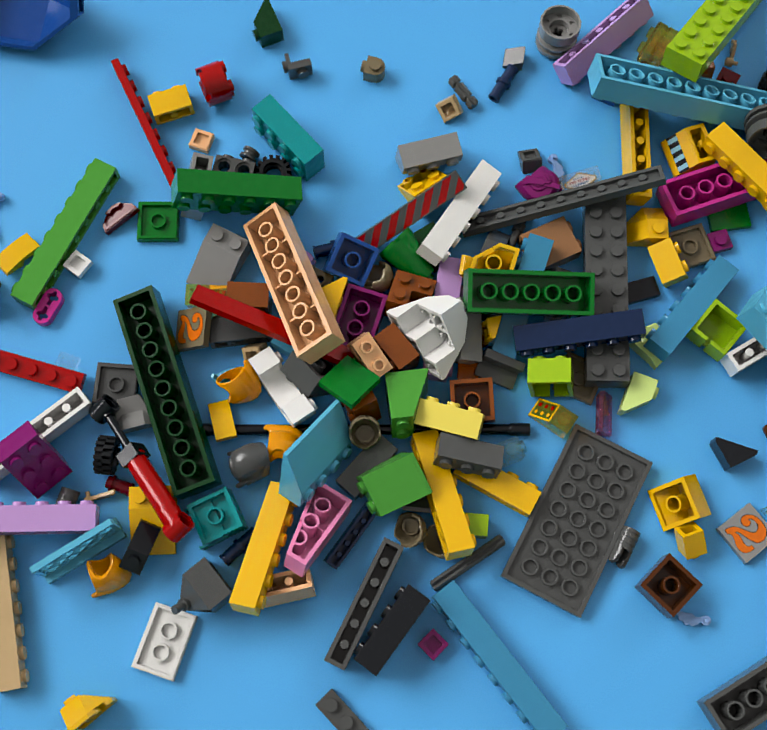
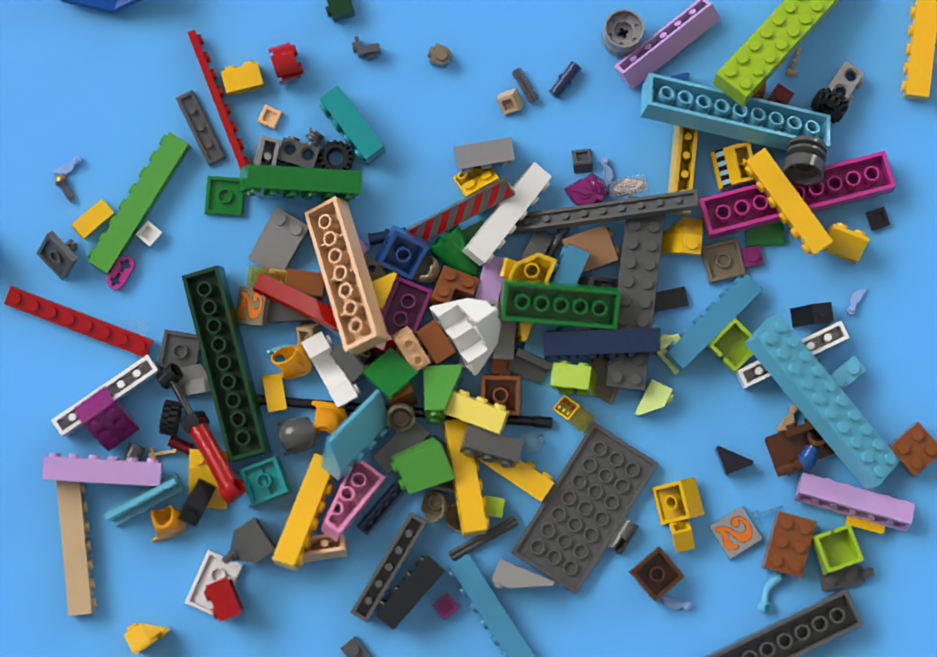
camera: 10 degrees right, 10 degrees up
(118, 215) = (187, 188): tile -> none
(129, 156) = (200, 128): none -> dark grey tile
(175, 656) = (224, 599): none -> red brick
(236, 549) = (282, 509): dark blue pin -> none
(508, 601) = (513, 576): none -> light grey slope
(514, 56) = (578, 53): slope -> none
(603, 423) = (621, 415): clear pink slope -> none
(653, 49) = (720, 51): clear yellow brick -> none
(668, 262) = (698, 276): yellow brick -> none

